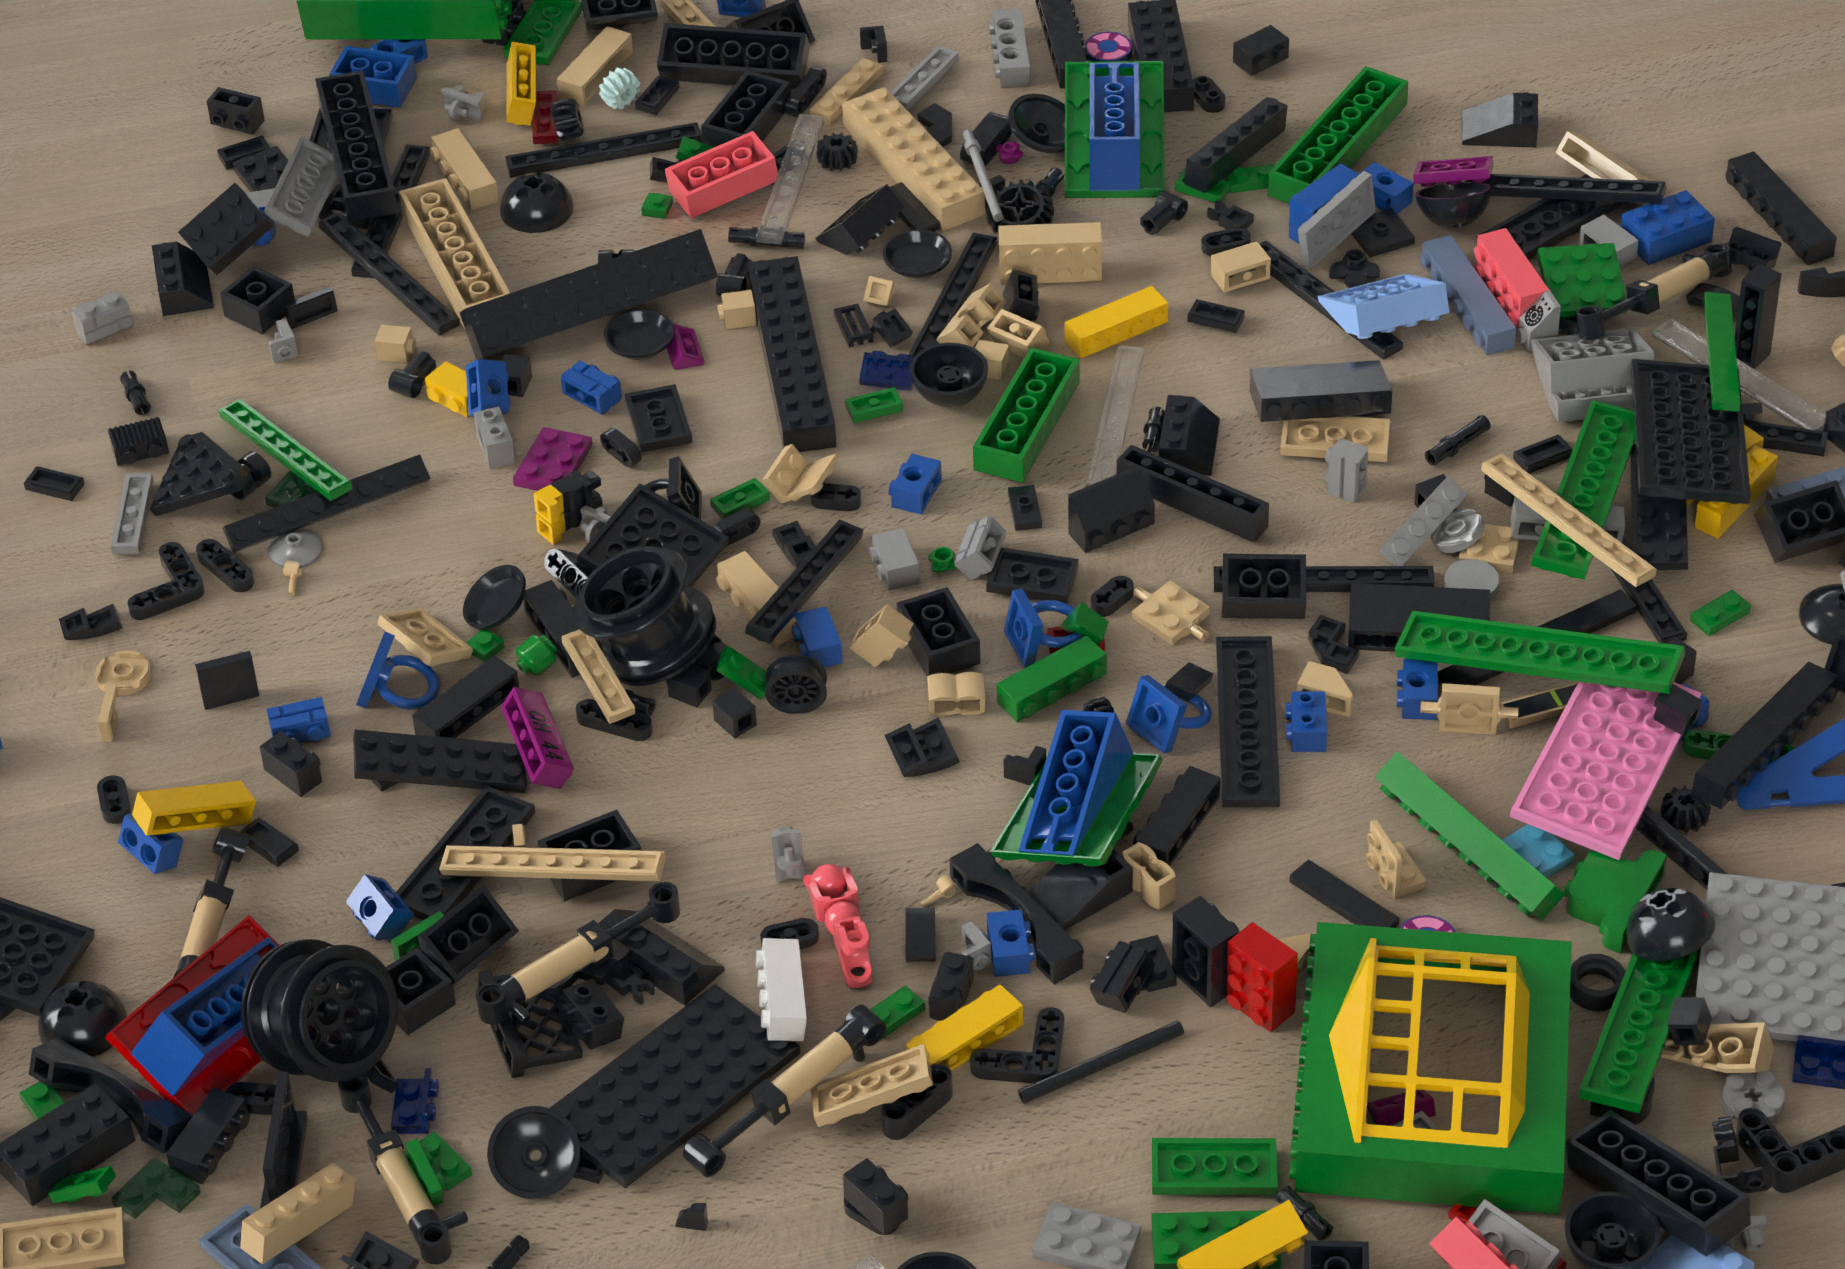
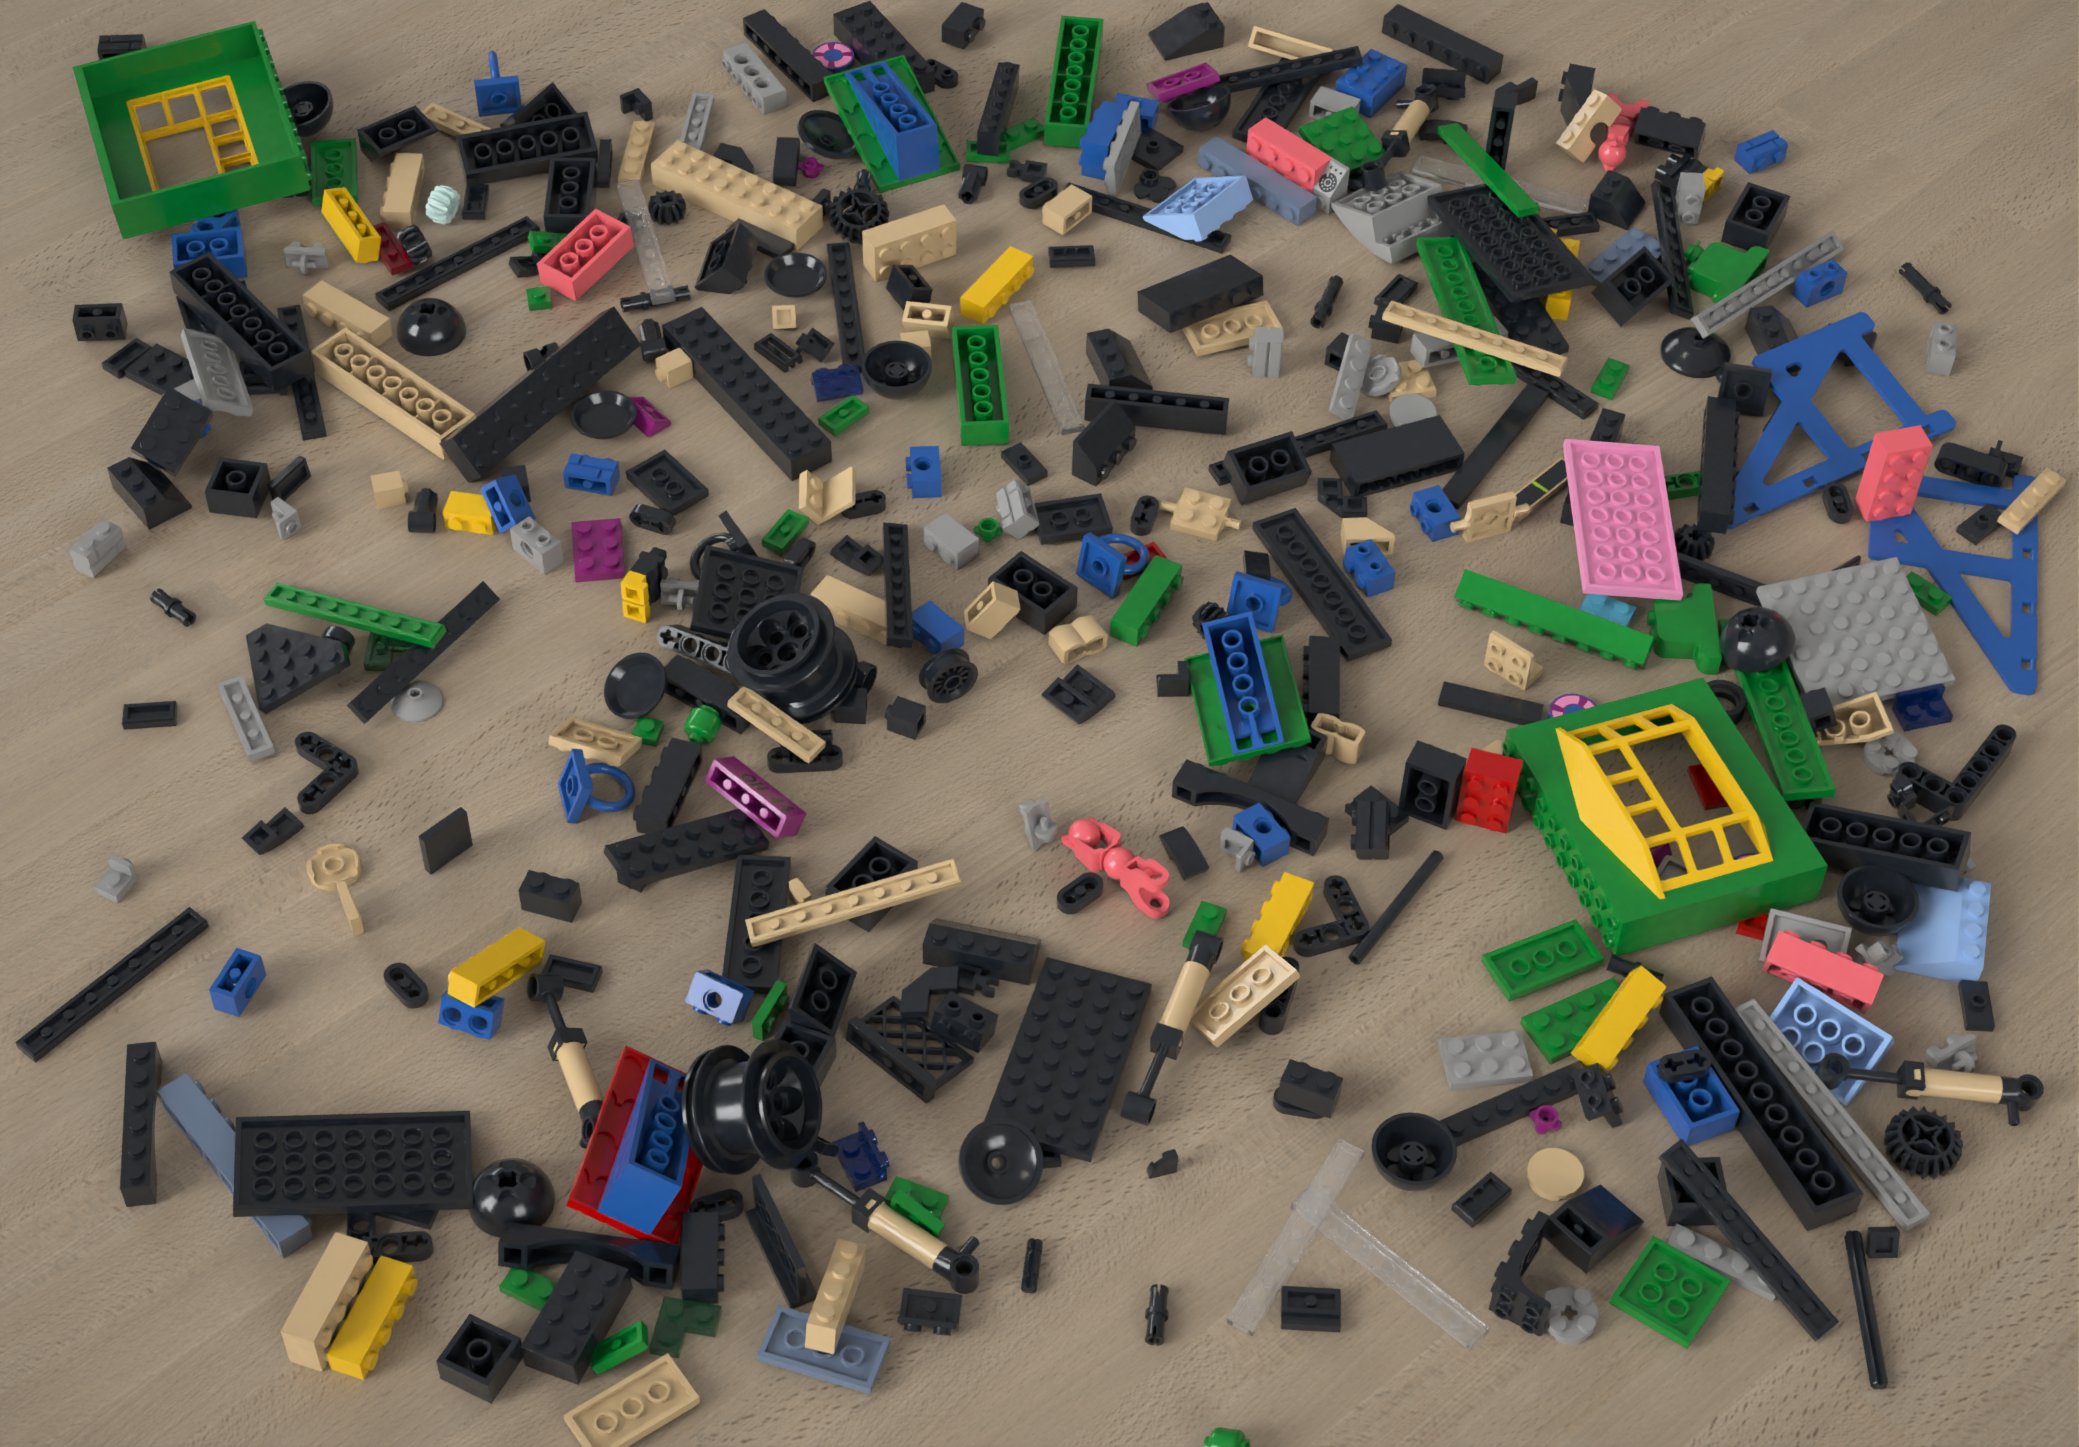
camera: 30 degrees left, 5 degrees up
(138, 441) = (208, 651): black brick -> none
(226, 575) = (357, 729): black beam -> none
(293, 571) = (430, 721): tan hand -> none
(300, 720) = (533, 853): blue brick -> none
(389, 273) = (341, 428): black tile -> none
(590, 946) = (936, 964): black piece -> none
(742, 672) = (894, 680): green plate -> none
(782, 989) = (1111, 941): white brick -> none
(945, 890) = (1177, 806): tan hand -> none
(950, 985) = (1242, 888): black brick -> none
(973, 149) = (788, 172): light grey bar -> none
(974, 313) = (878, 309): tan arch -> none
(1086, 622) = (1145, 544): green tile -> none
(1153, 429) = (1085, 365): black pin -> none
(1540, 651) = (1525, 452): green plate -> none
(1677, 709) = (1656, 464): black brick -> none

